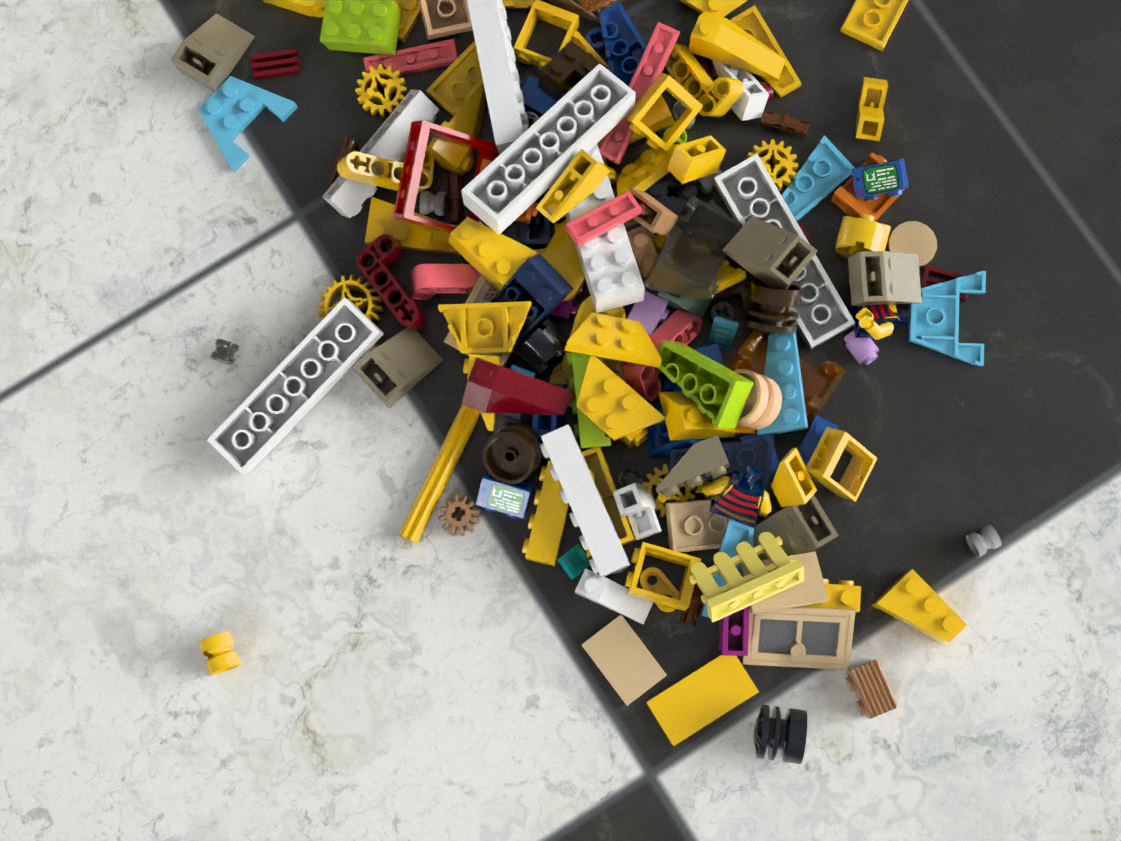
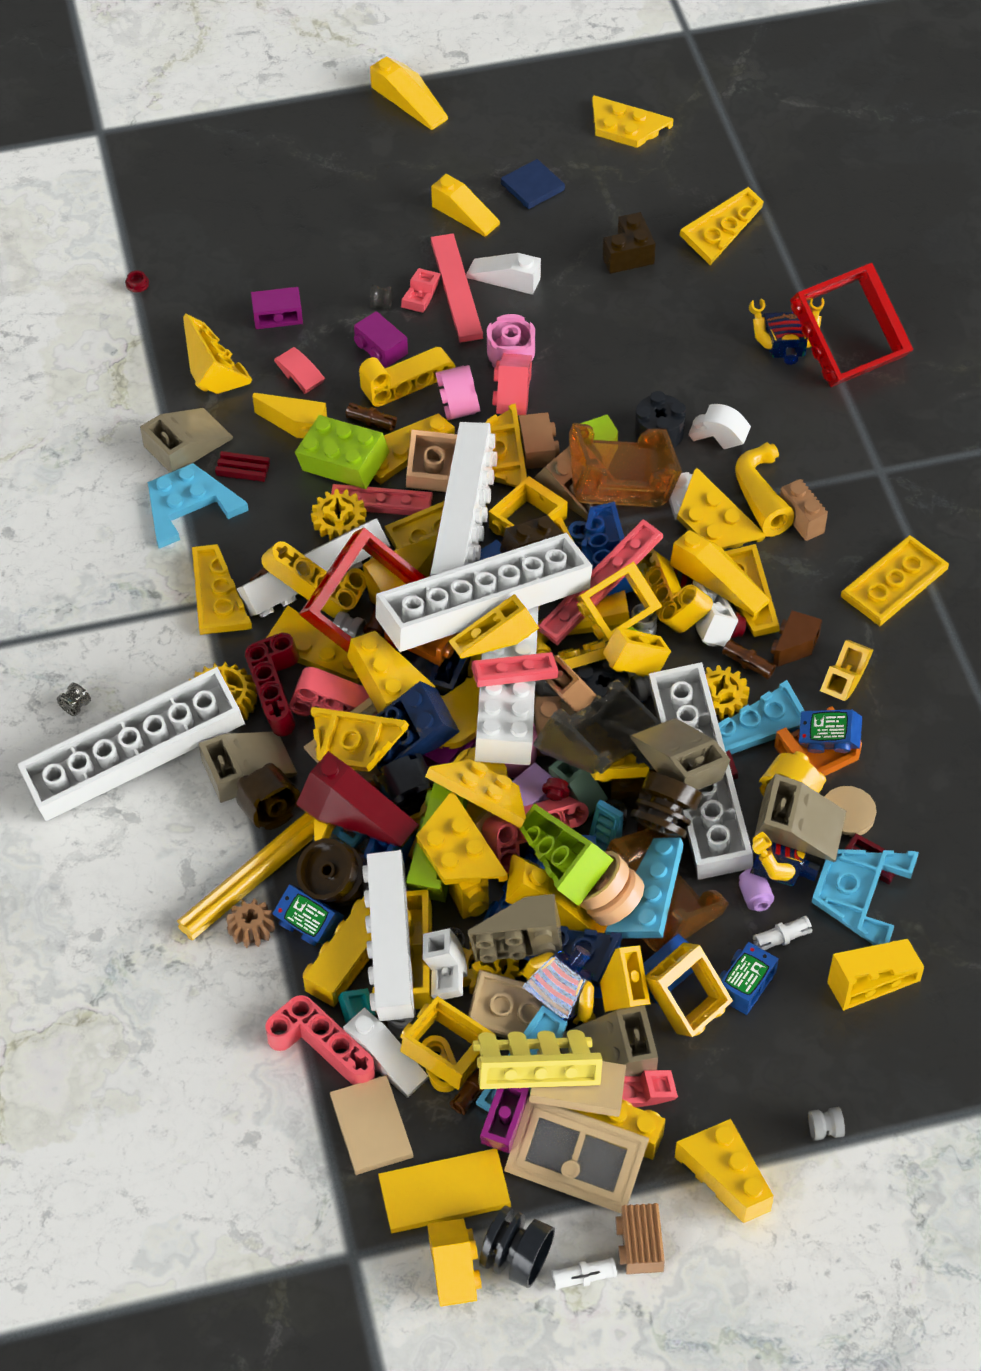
camera: 10 degrees right, 25 degrees down
(306, 207) = (216, 594): none -> yellow wing
(429, 395) = (267, 797): none -> dark brown brick
(563, 604) = (324, 1044): none -> coral beam
(670, 312) = (556, 789): none -> dark red plate
(734, 760) = (452, 1257): none -> yellow brick
(819, 87) = (797, 638): none -> reddish brown slope
(835, 553) = (649, 1088): none -> coral slope
(836, 731) = (584, 1273): none -> white pin
(880, 429) = (748, 976): none -> brick
(894, 379) = (783, 933): none -> white pin
(981, 392) = (873, 972): none -> yellow wedge

